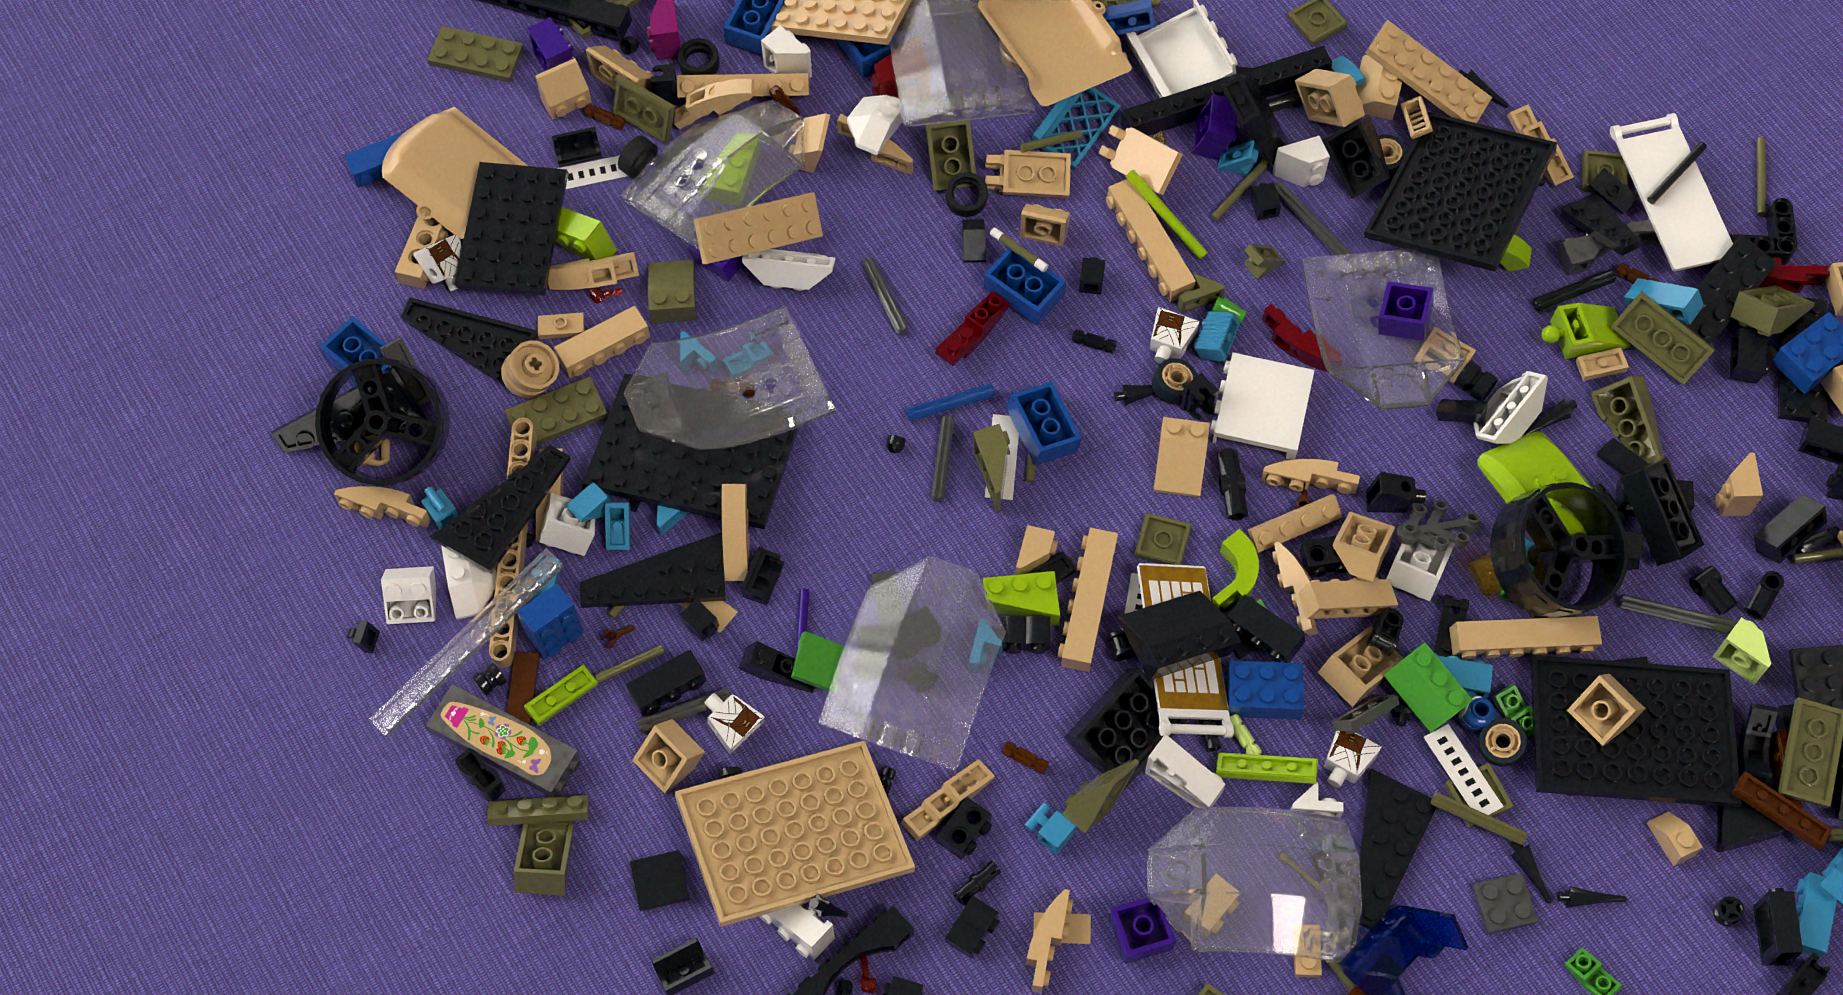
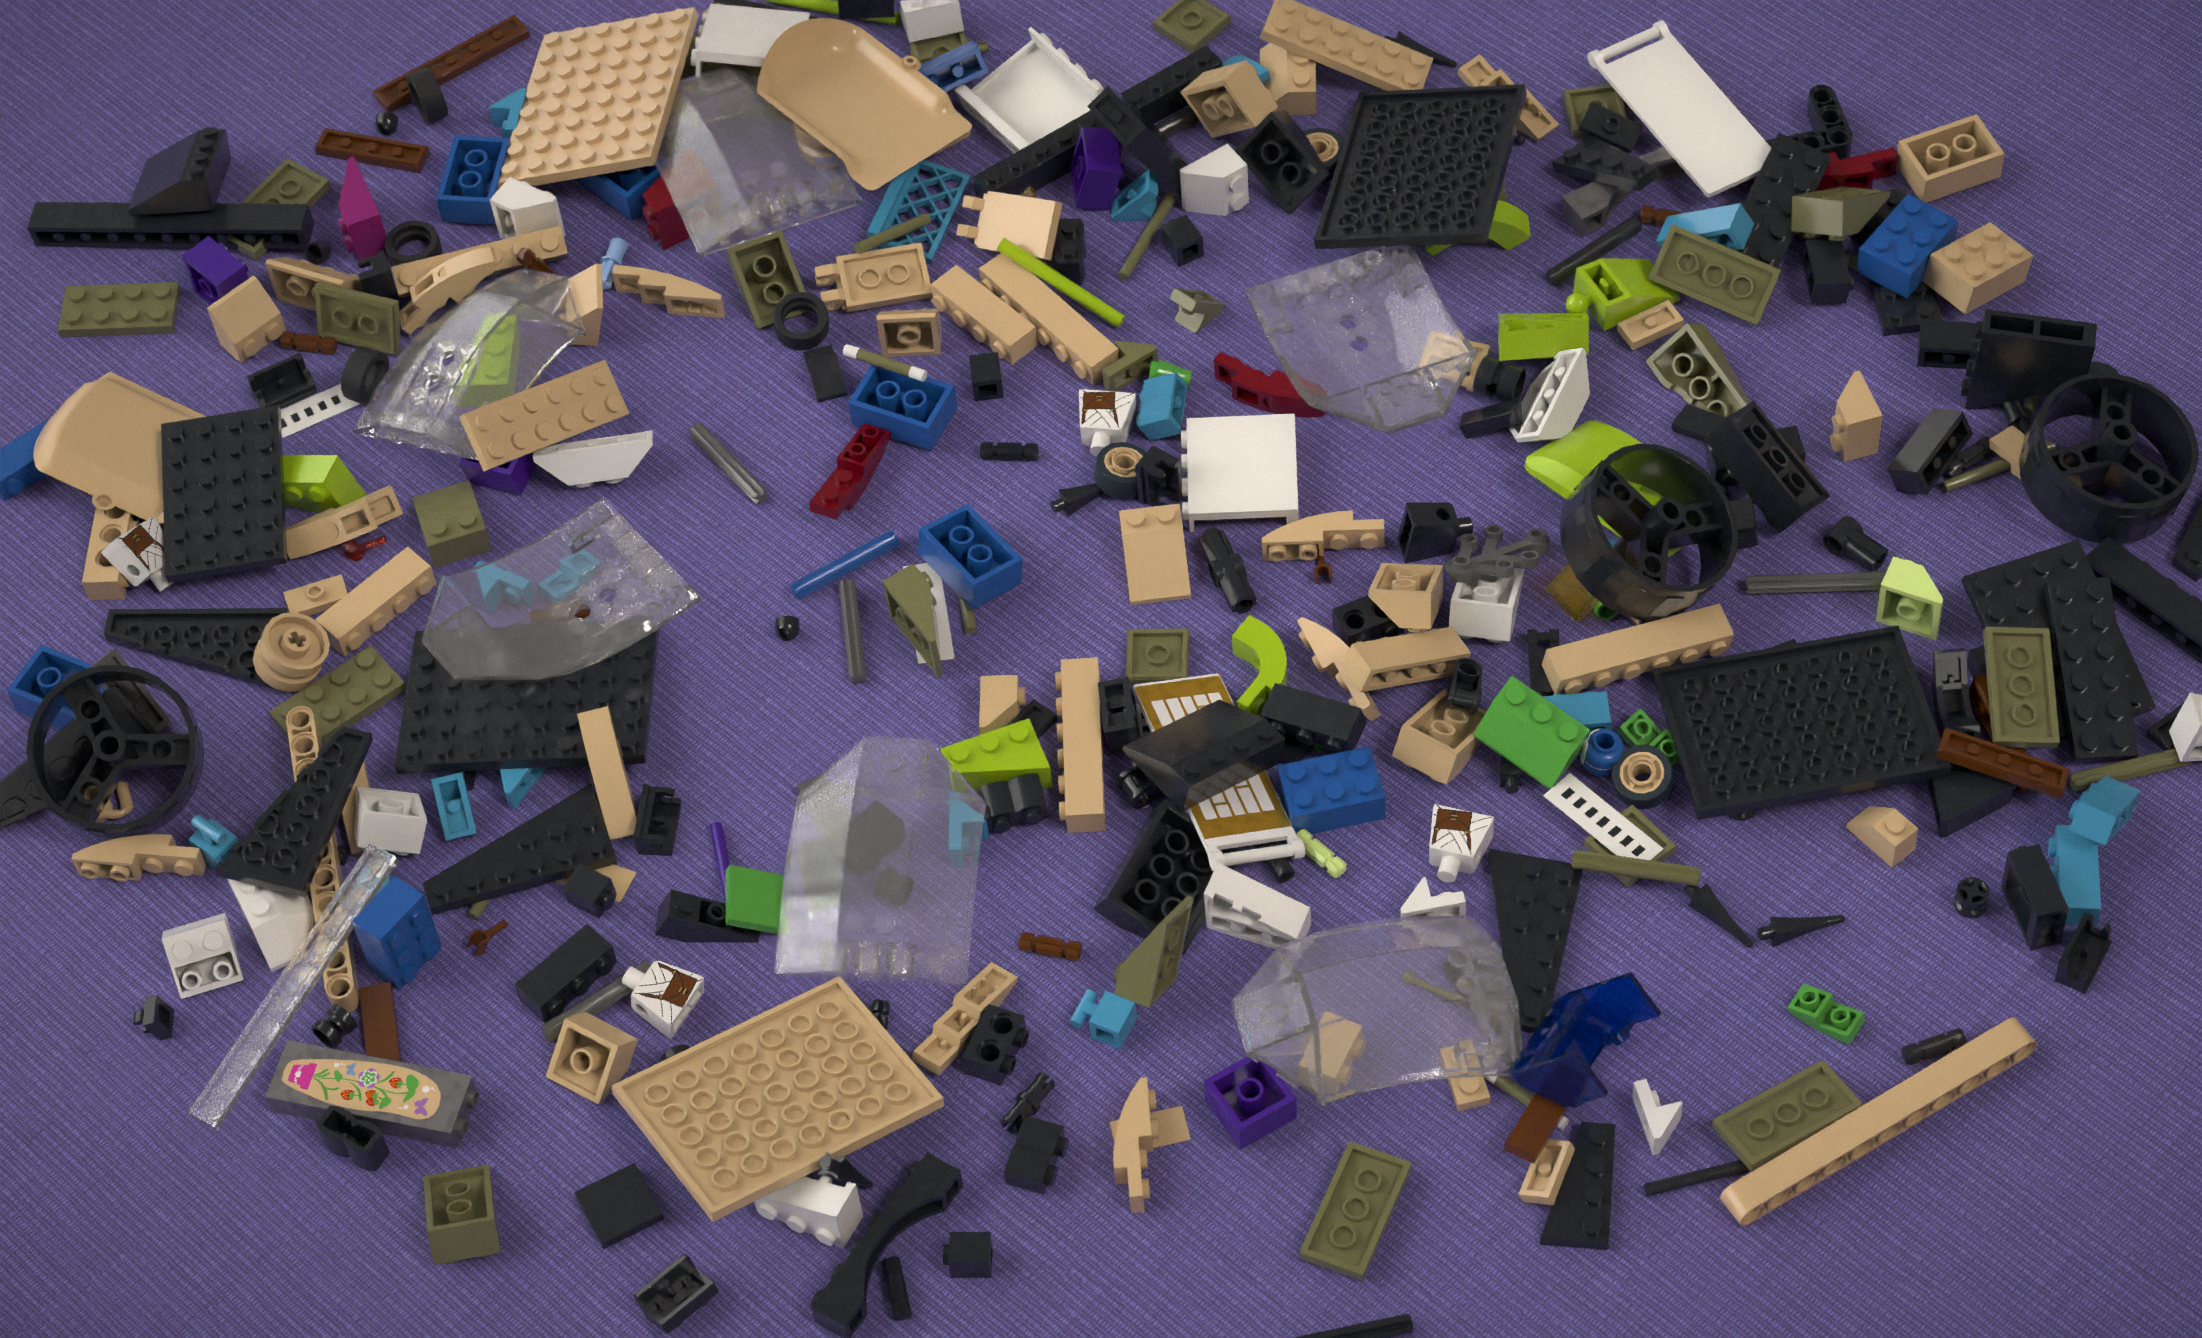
camera: 10 degrees left, 10 degrees down
(538, 810) = (439, 1162): olive plate -> none
(560, 695) = (432, 1023): lime tile -> none
(589, 503) = (411, 786): dark azure slope -> none
(629, 664) = (512, 966): olive bar -> none
(840, 107) = (613, 257): none -> light blue axle
(868, 984) = (920, 1255): clear red hand -> none
(875, 122) = (662, 260): white wedge -> none
(1102, 224) = (984, 315): none -> tan brick
(1122, 584) = (1118, 713): none -> black brick
(1180, 189) = (1071, 250): none -> black brick
(1267, 768) = (1358, 878): lime tile -> none
(1295, 523) = (1319, 594): tan plate -> none
(1310, 220) = (1242, 247): dark grey axle -> none
(1365, 713) = (1464, 784): dark grey plate -> none
(1406, 311) = (1389, 317): dark purple brick -> none
(1412, 106) = (1344, 100): tan slope -> none
(1504, 904) = (1695, 961): dark grey plate -> none
(1516, 353) = (1541, 334): none -> lime wedge
(1558, 413) = (1612, 393): black piece -> none
(1605, 708) = (1756, 701): tan slope -> none
(1677, 172) = (1682, 85): black bar -> none
(1761, 176) = (1789, 71): olive bar -> none
(1764, 596) = (1918, 533): black piece -> none

